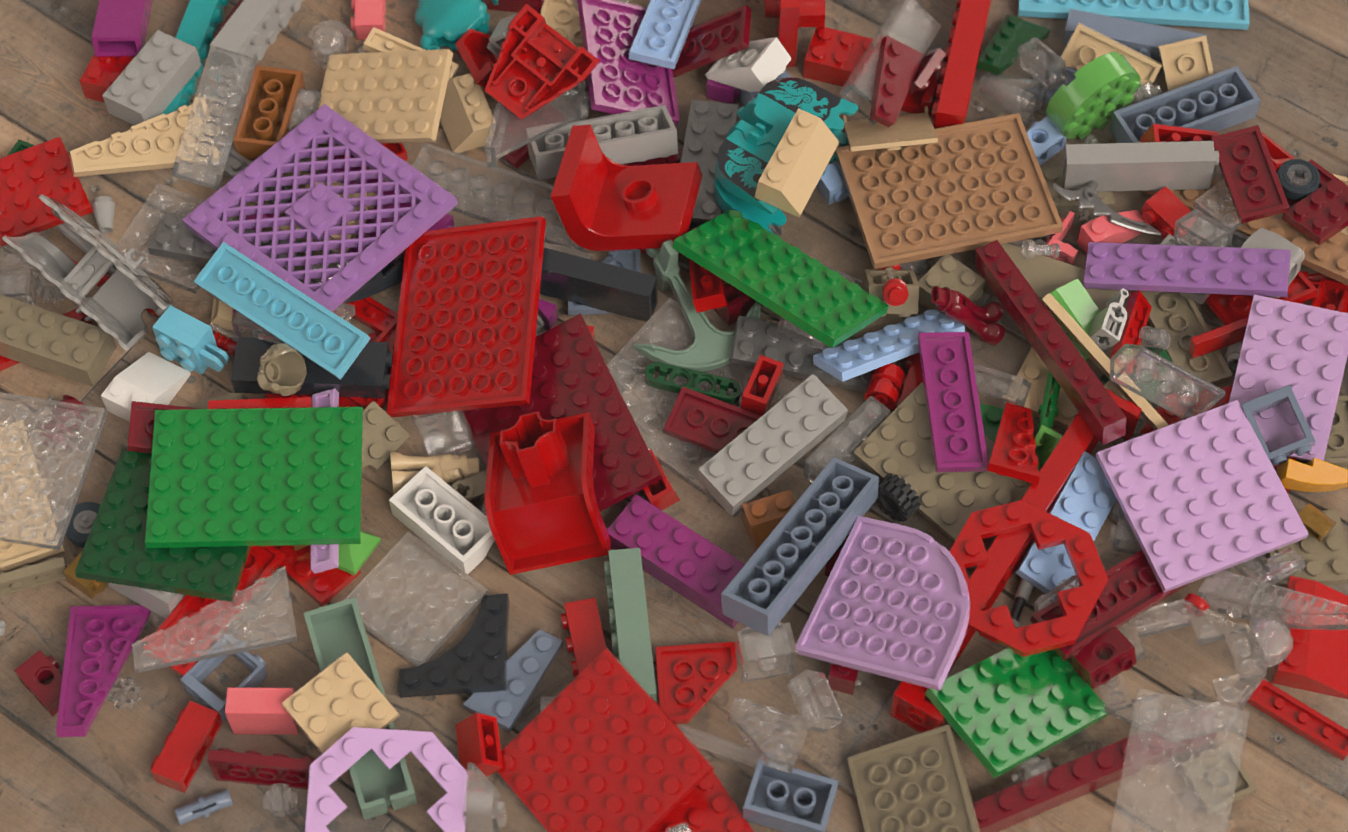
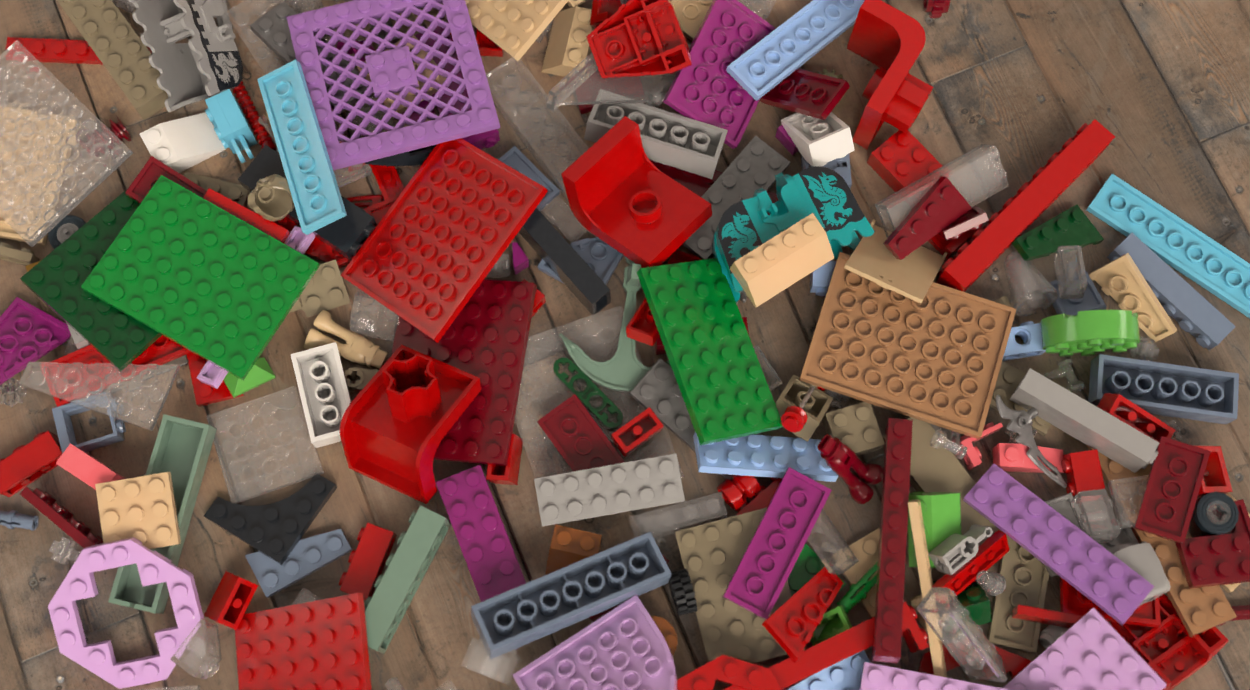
camera: 30 degrees right, 15 degrees up
(692, 676) = (425, 642): red plate -> none
(1186, 61) = (1198, 343): tan plate -> none

